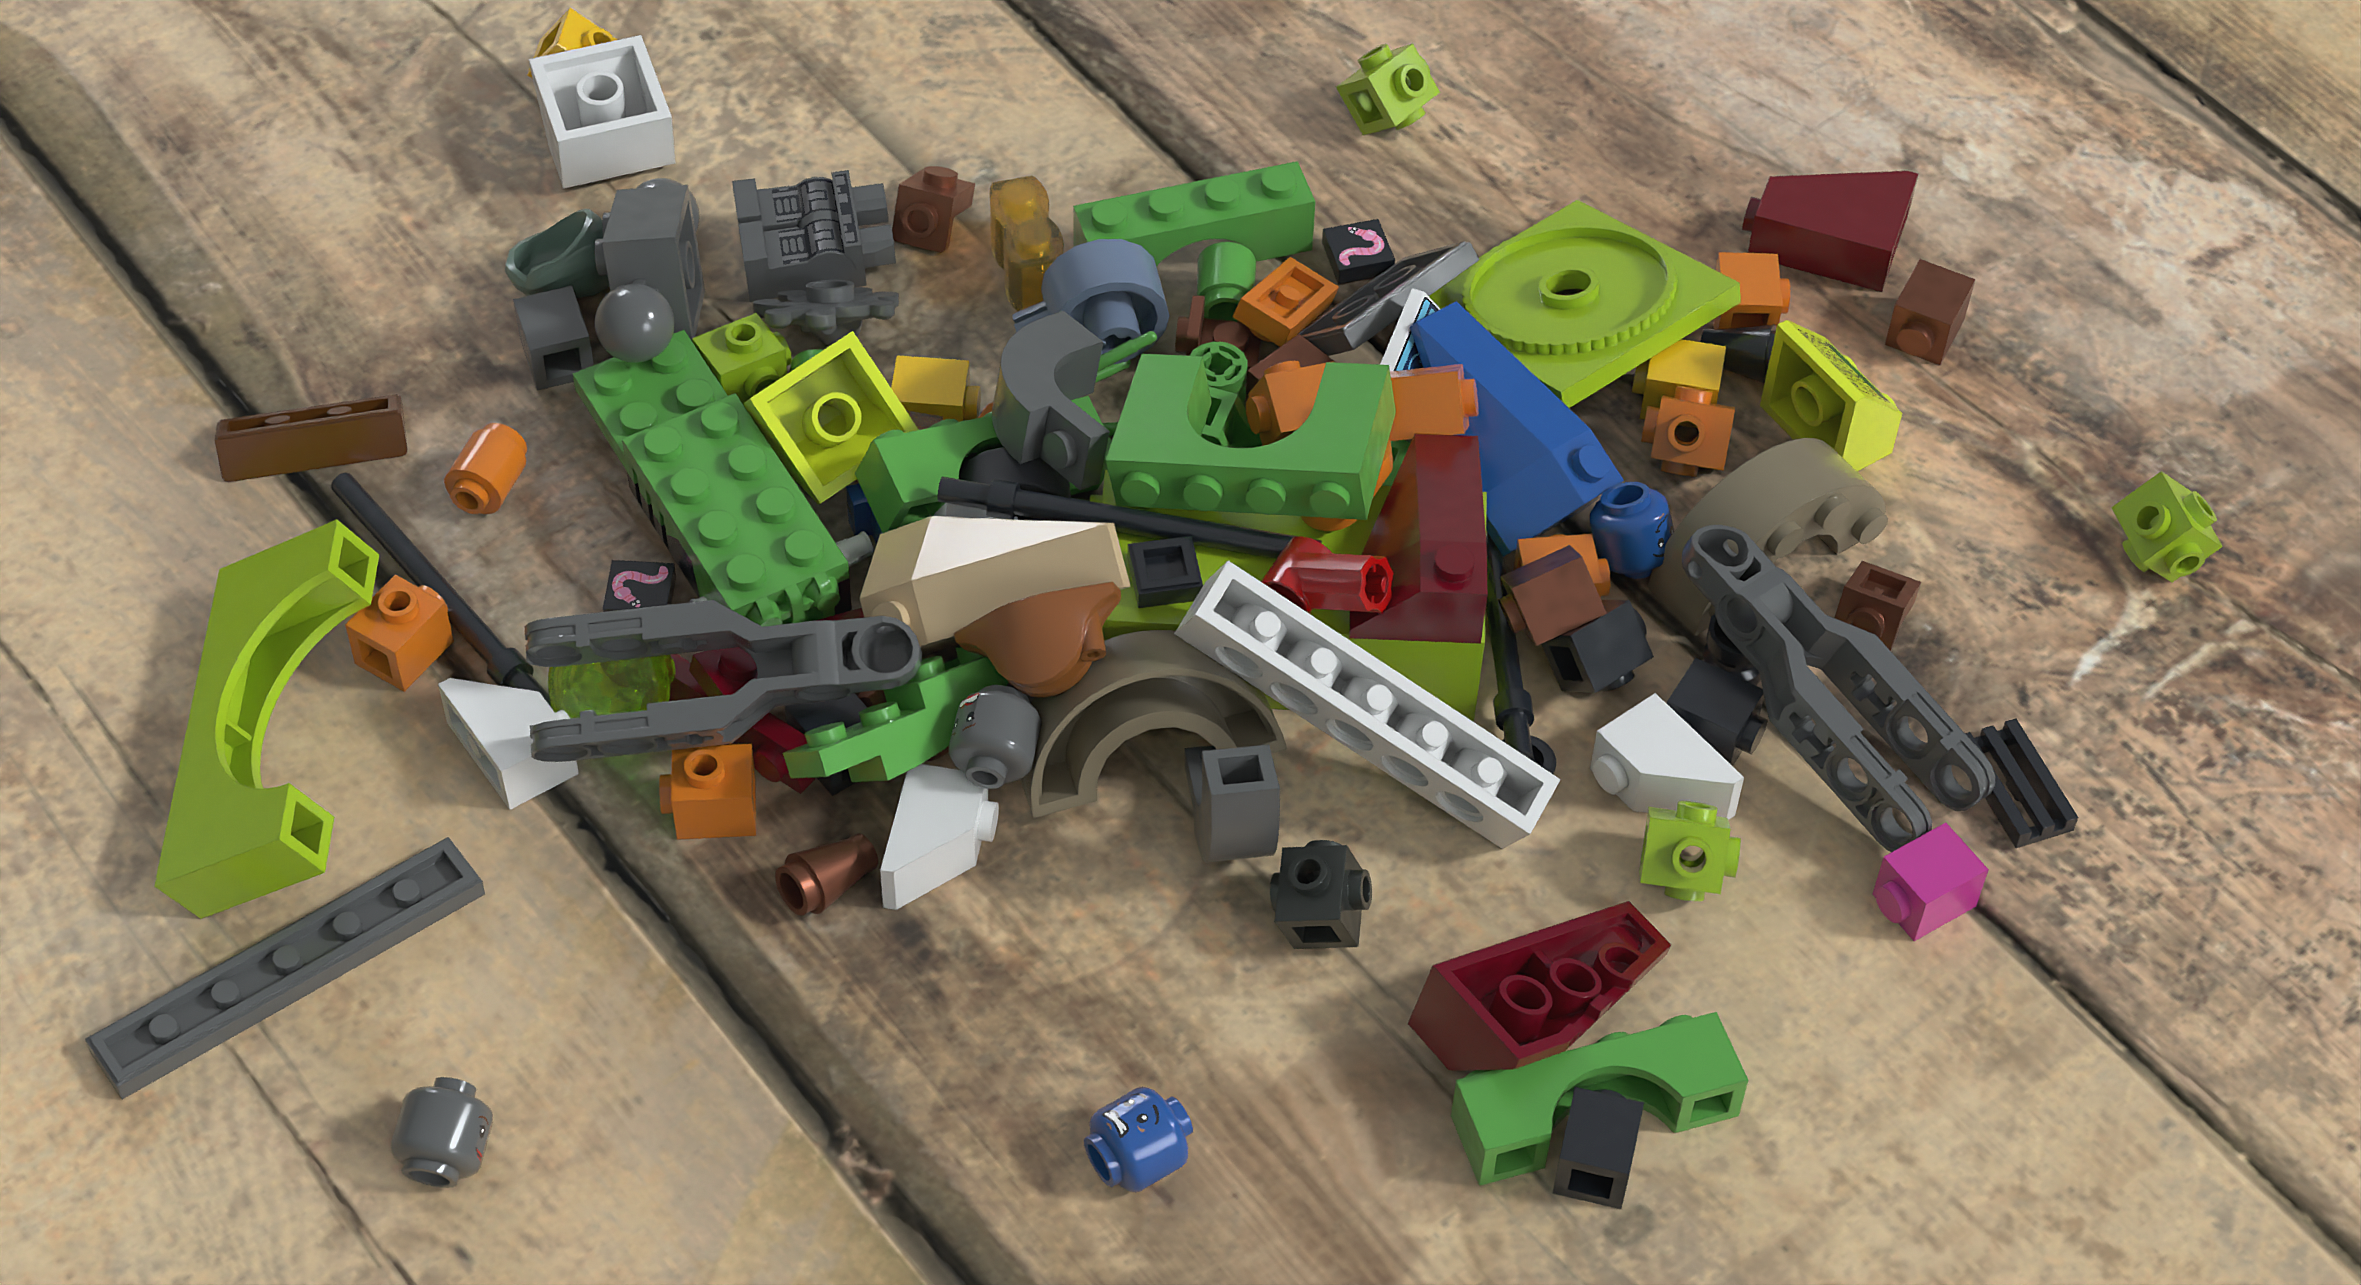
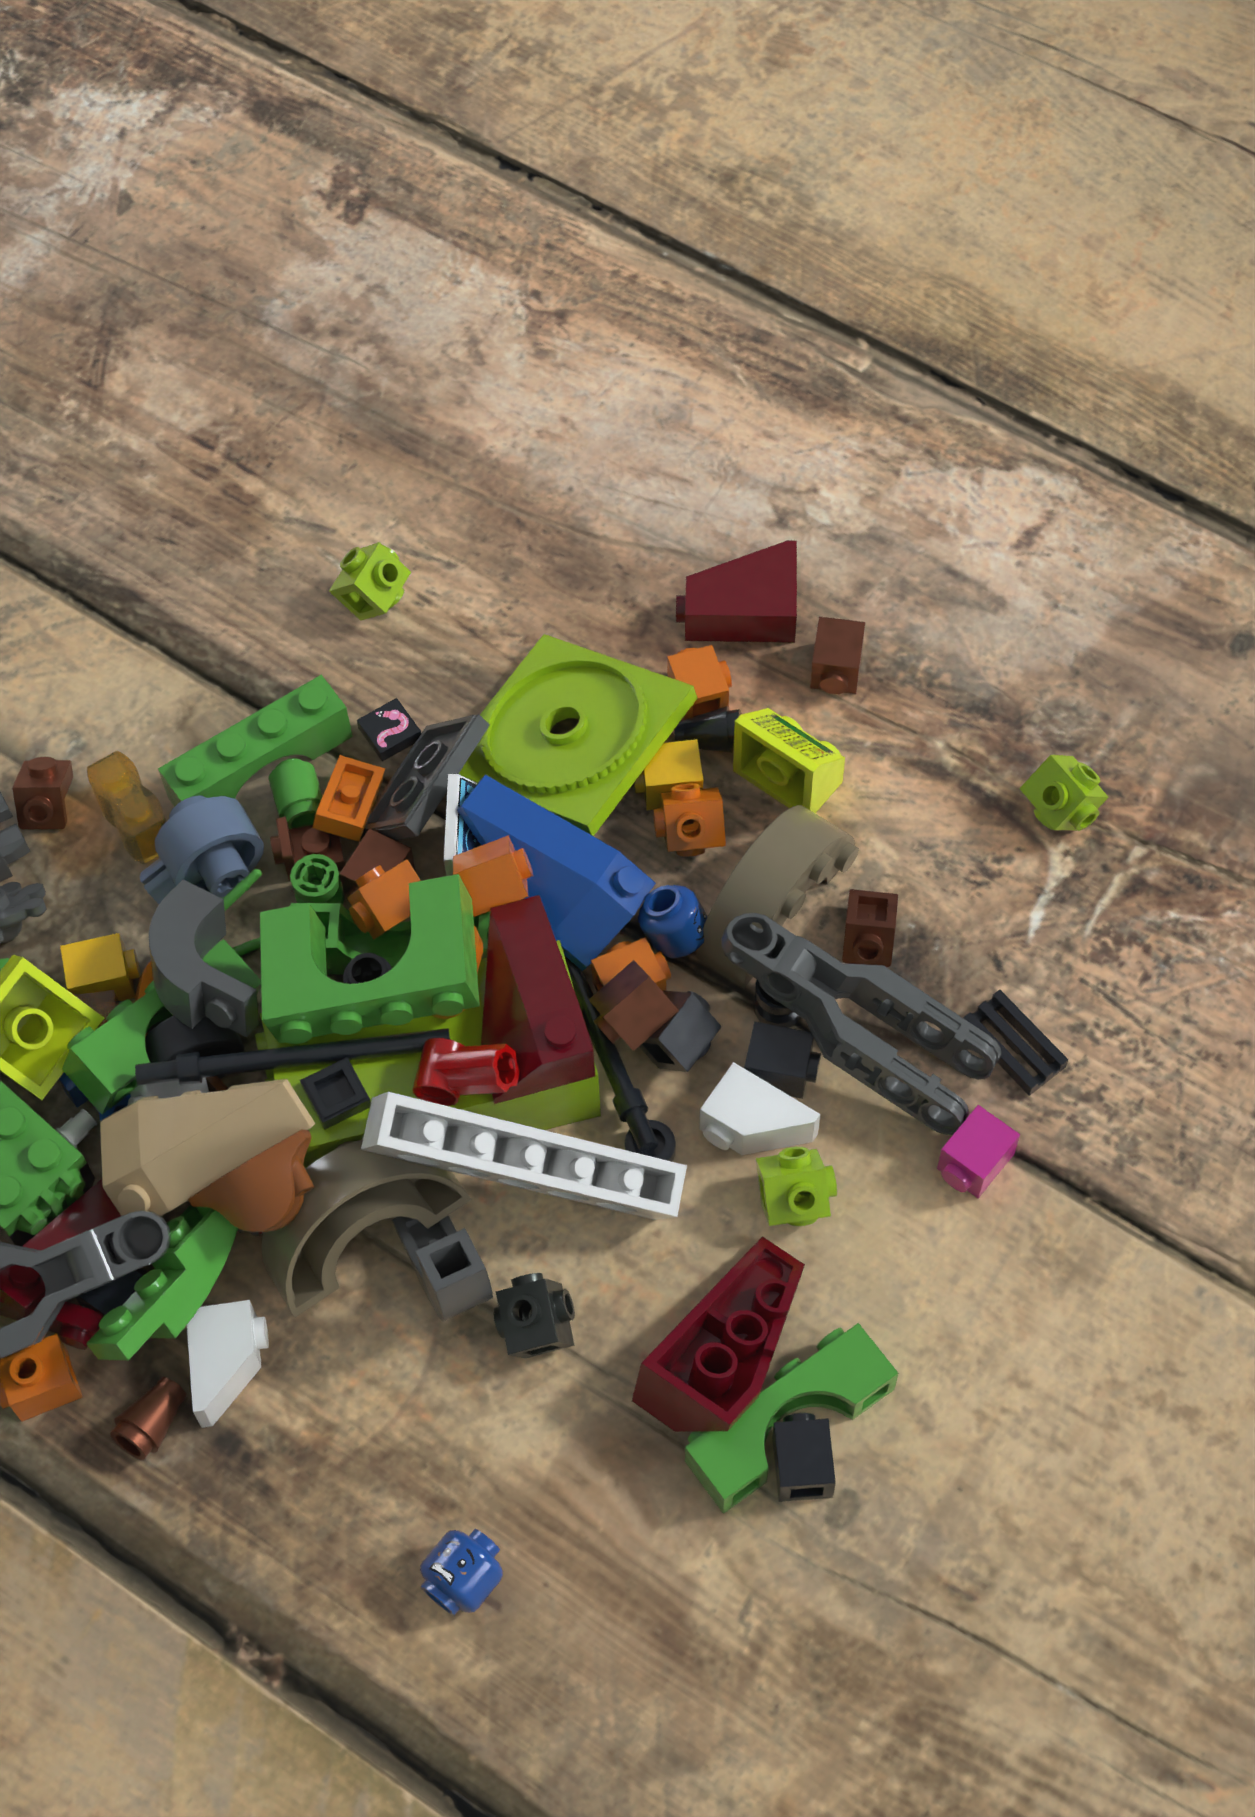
camera: 15 degrees left, 10 degrees up
(995, 736) = (246, 1271): dark grey head -> none

